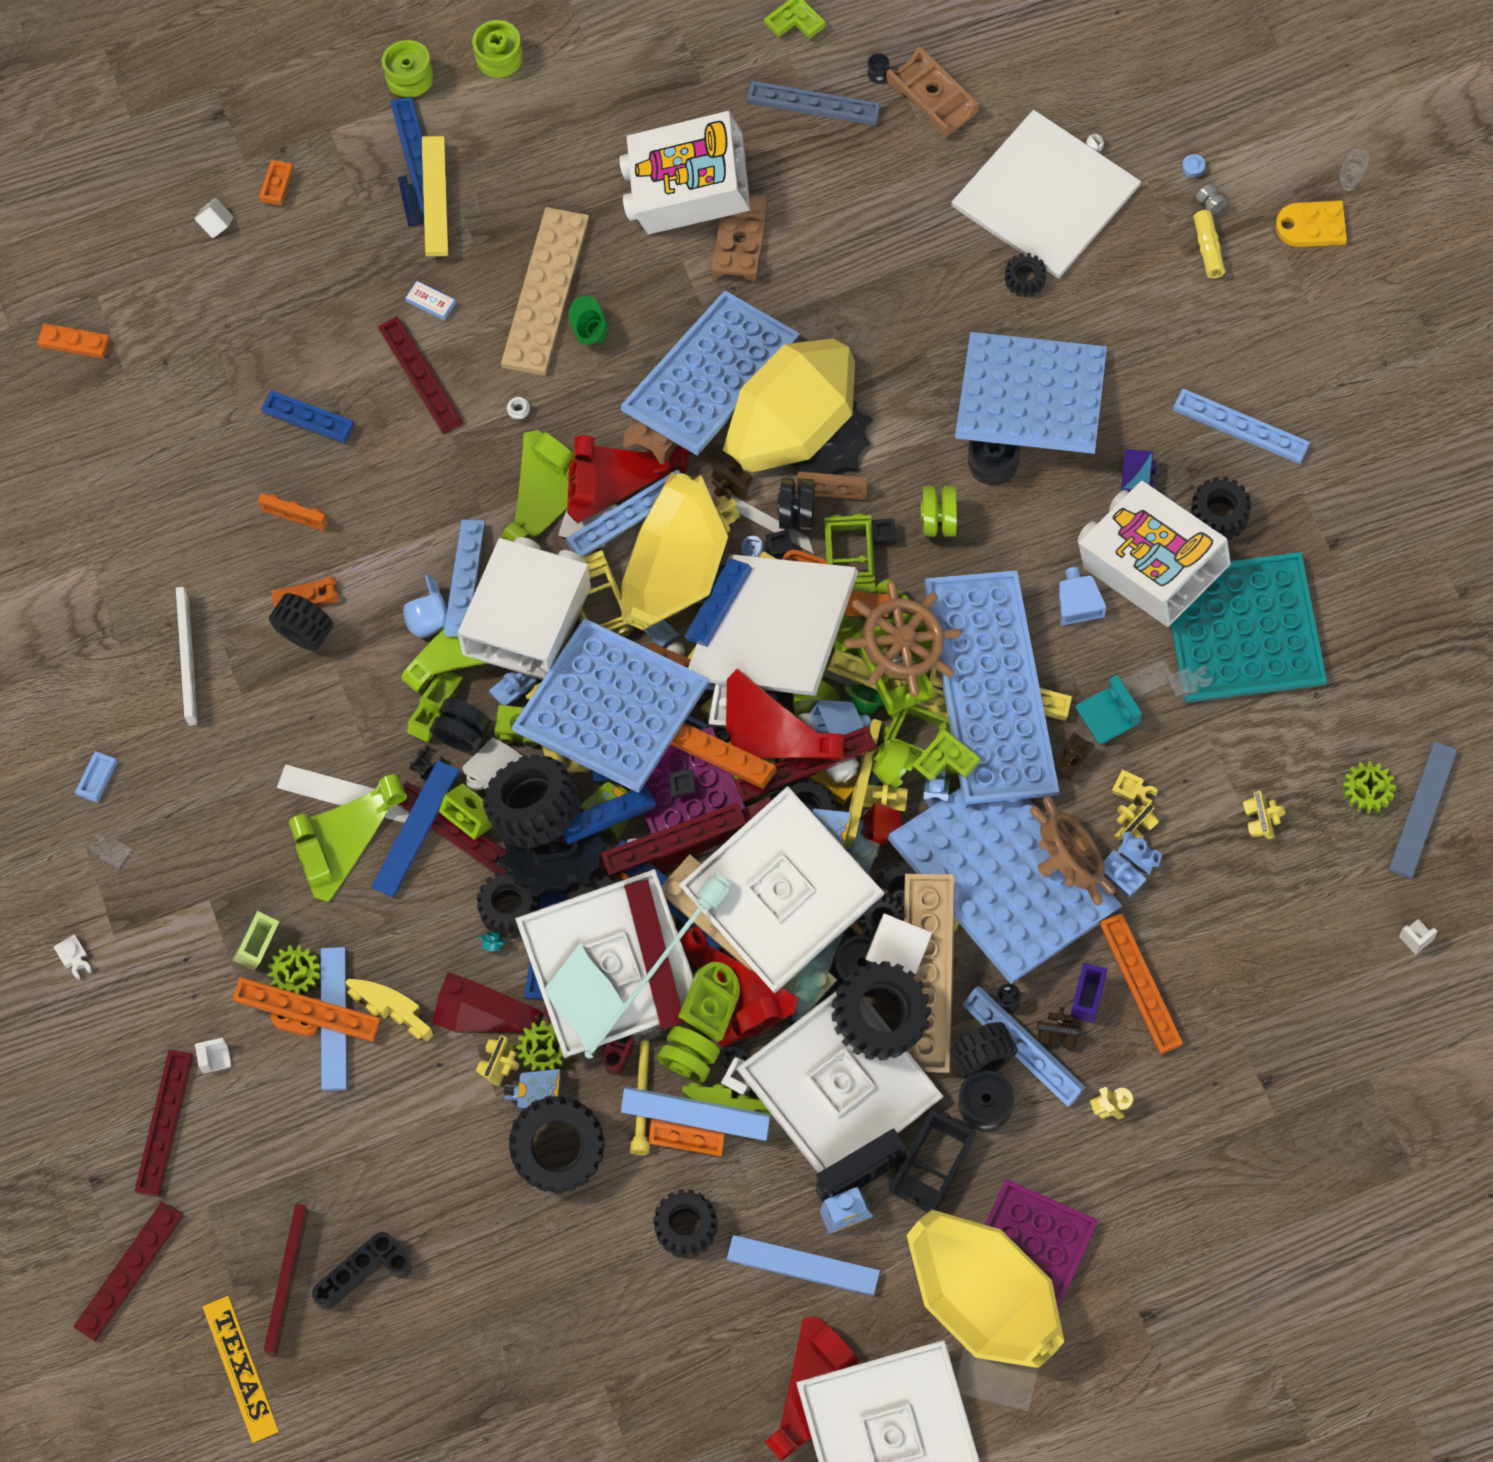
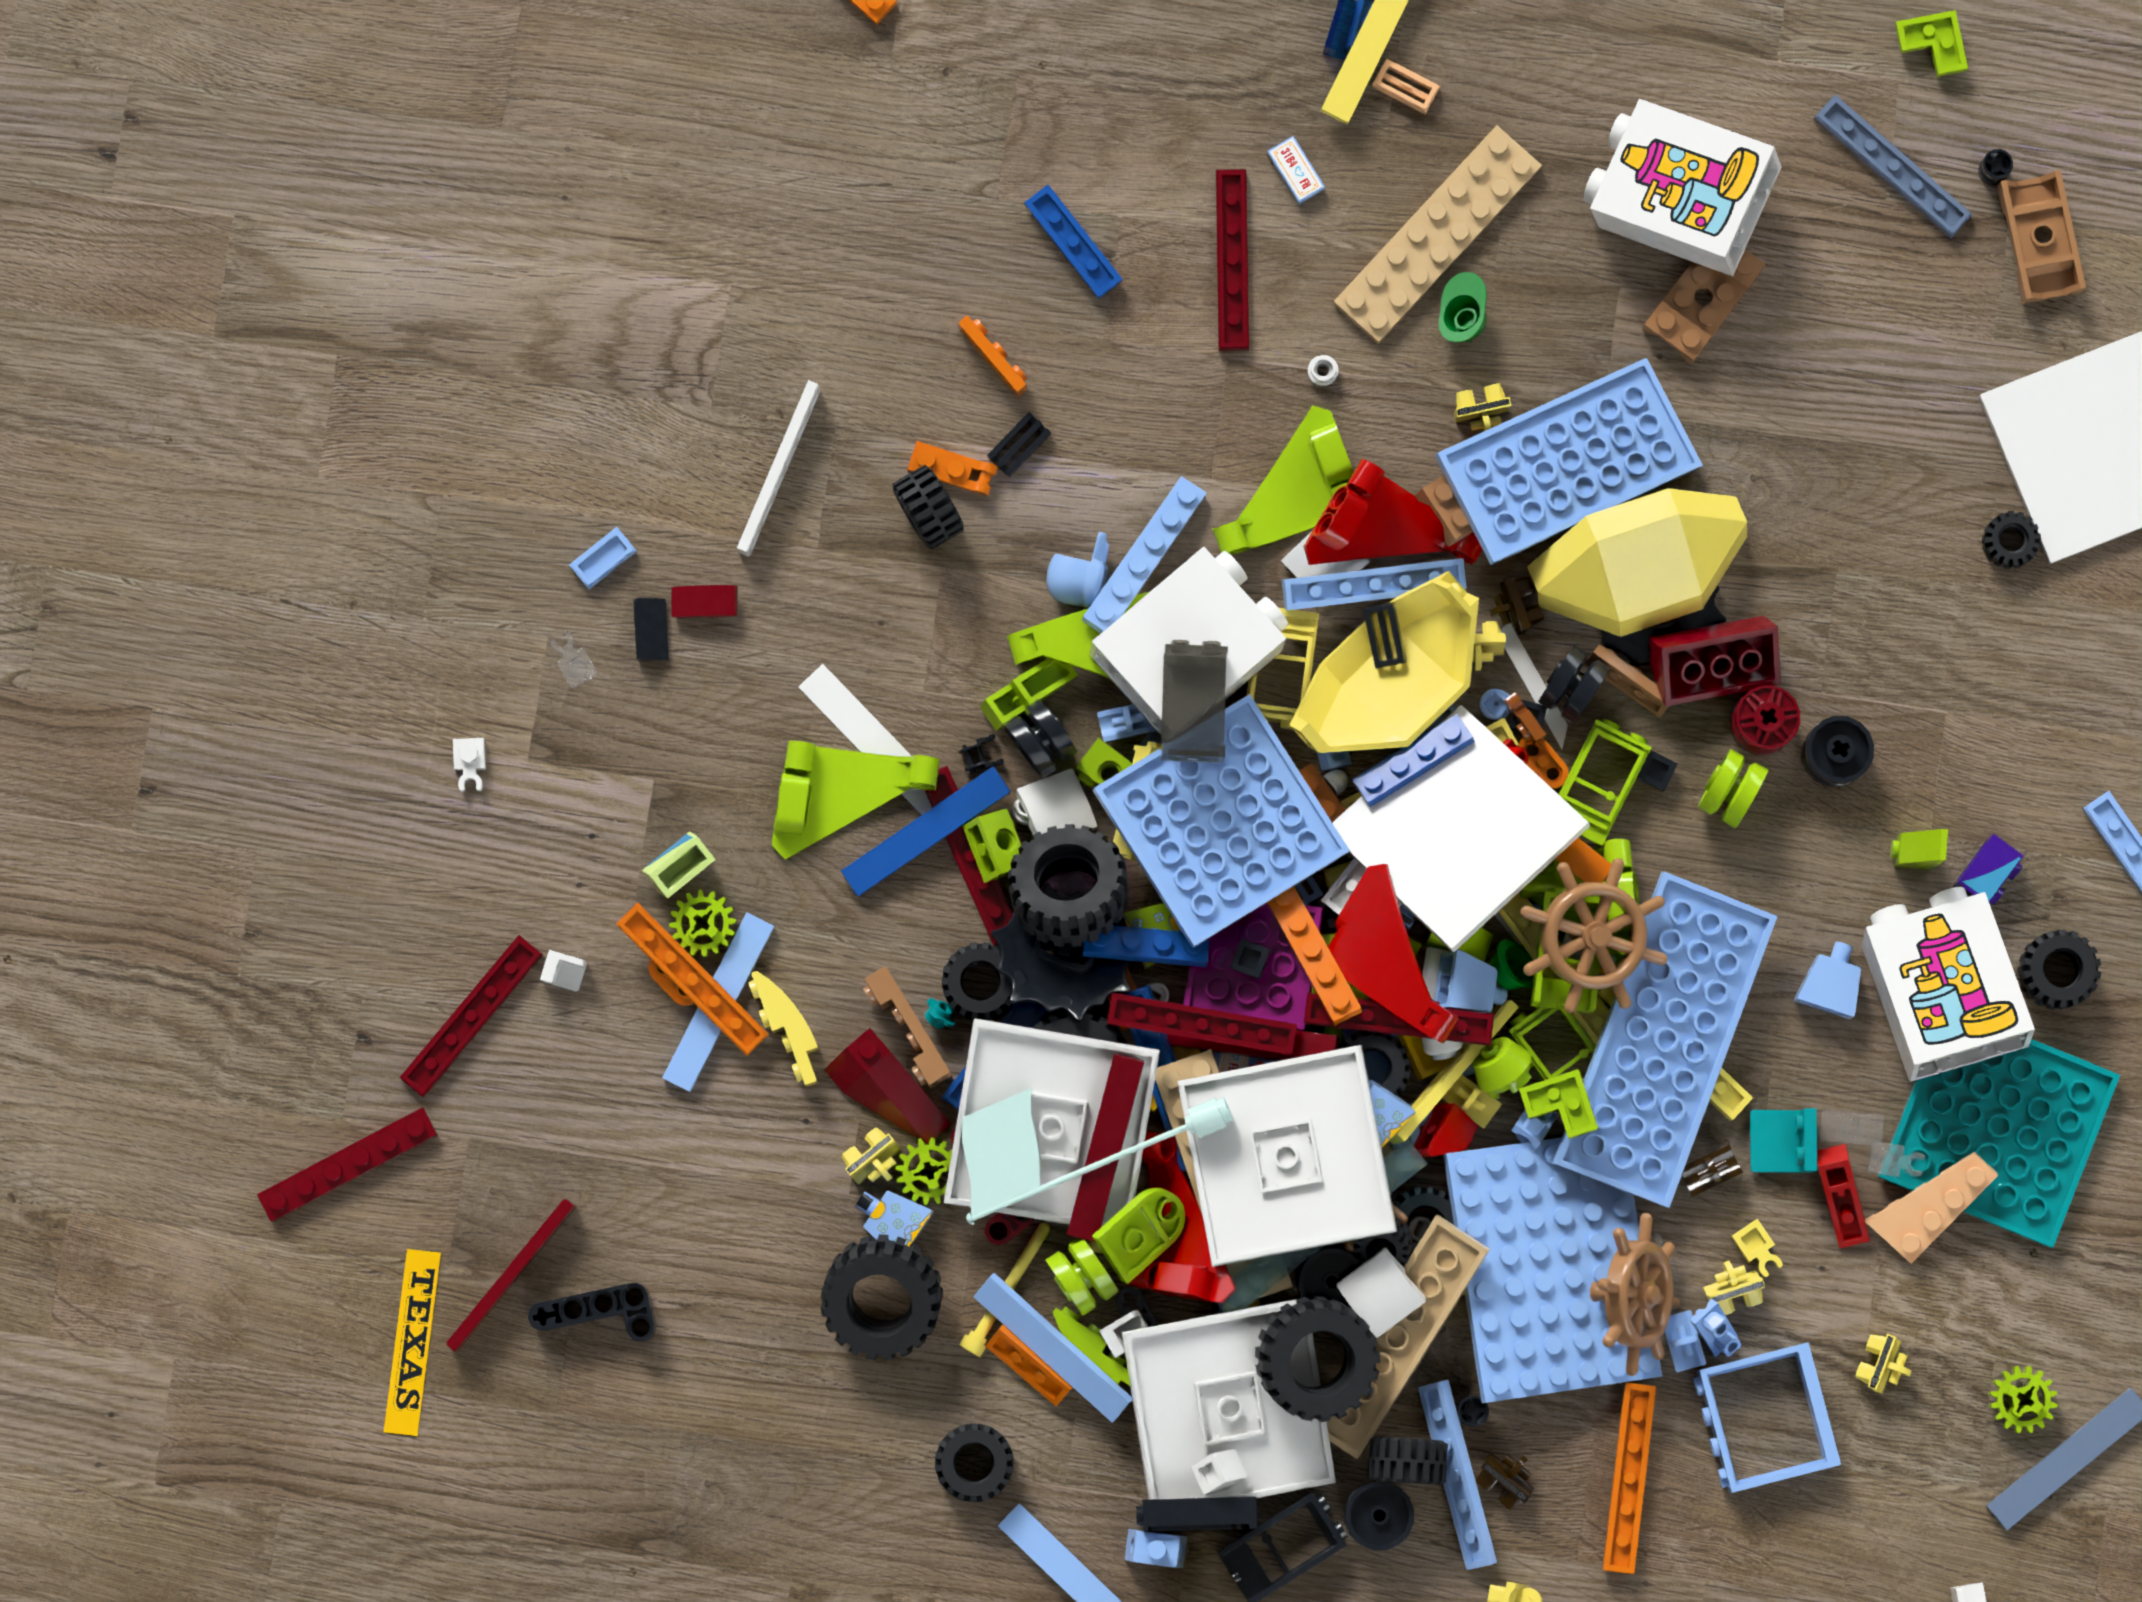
camera: 25 degrees right, 15 degrees up
(154, 804) = (650, 629): none -> black slope
(182, 764) = (704, 601): none -> dark red slope
(332, 558) = (1036, 425): none -> black tile
(446, 944) = (884, 991): none -> medium nougat piece
(472, 219) = (1423, 108): none -> light nougat tile
(547, 631) = (1193, 702): none -> clear smoke panel
(631, 380) = (1495, 404): none -> light yellow hips
(667, 556) = (1401, 657): none -> black tile
(780, 543) = (1528, 725): none -> dark orange plate
(858, 1126) = (1219, 1471): none -> white panel
(880, 441) = (1715, 660): none -> dark red slope
(932, 470) = (1747, 722): none -> dark red wheel
(1031, 392) = (1927, 700): light blue plate -> none
(1085, 481) = (1920, 849): none -> lime slope
(1089, 992) = (1564, 1458): dark purple brick -> none
(1169, 725) = (1842, 1196): none -> red slope
(1230, 703) = (1927, 1211): none -> light nougat wing
(1234, 865) = (1816, 1406): none -> light blue window

